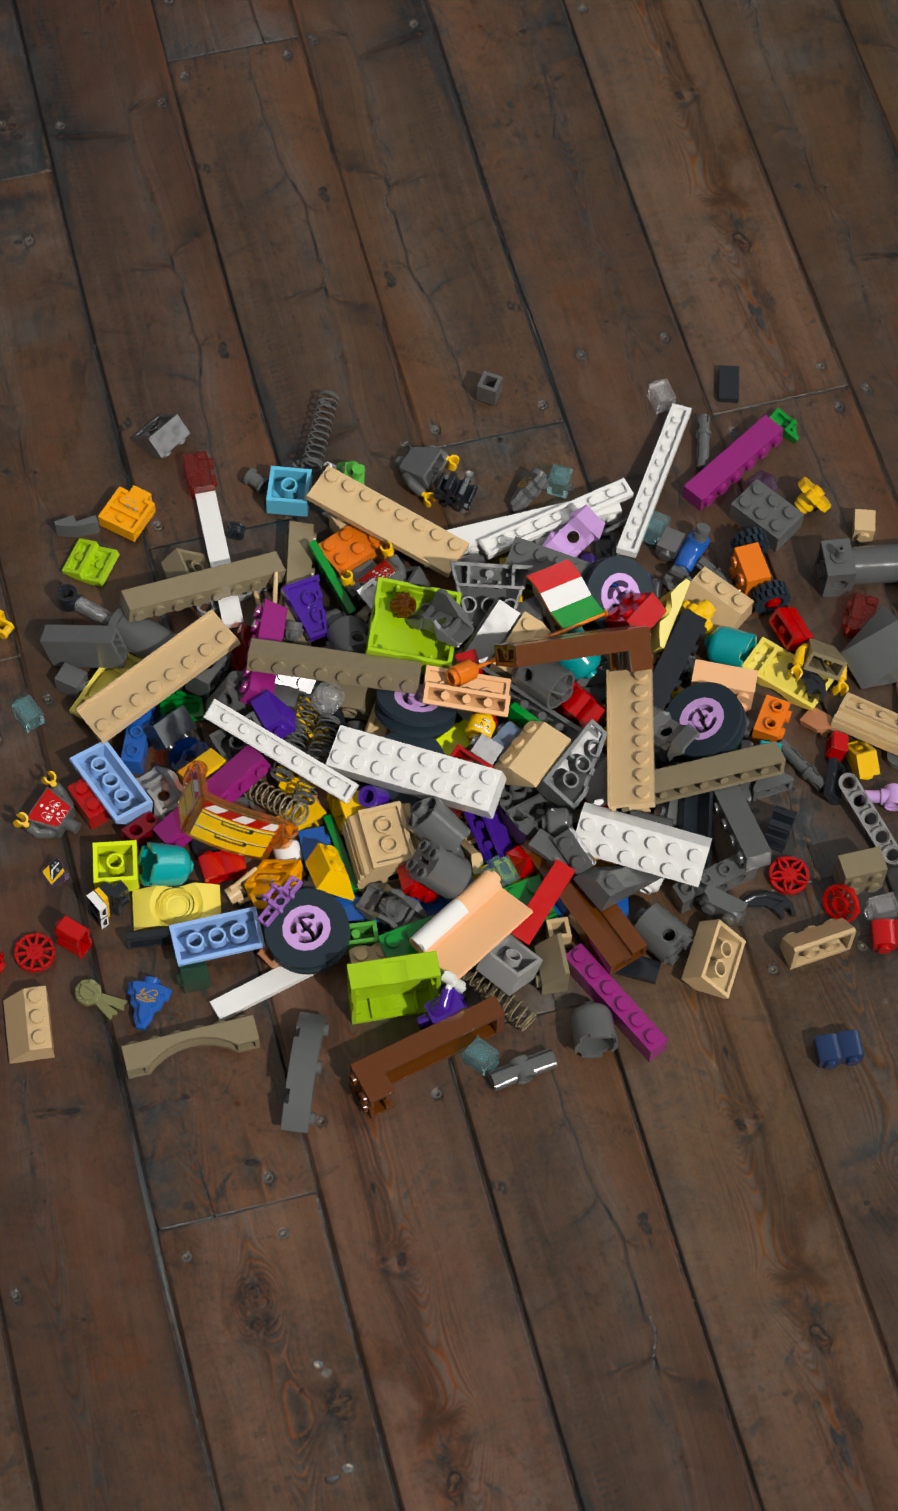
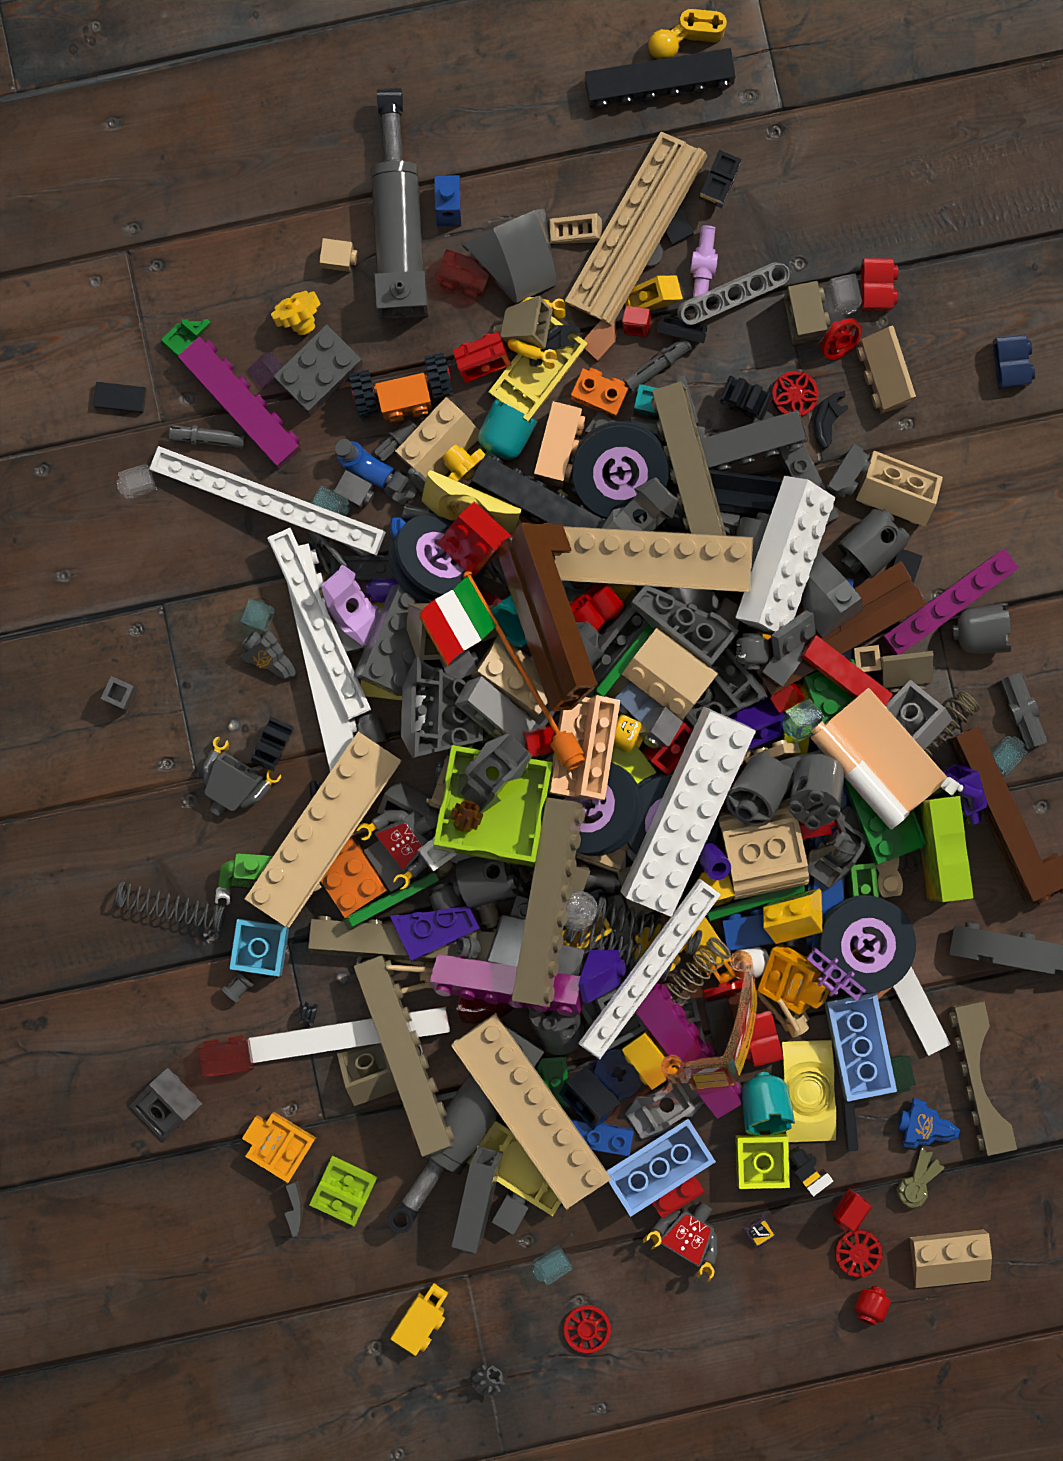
camera: 85 degrees left, 25 degrees up
(140, 829) = (712, 1130): dark red leg -> none

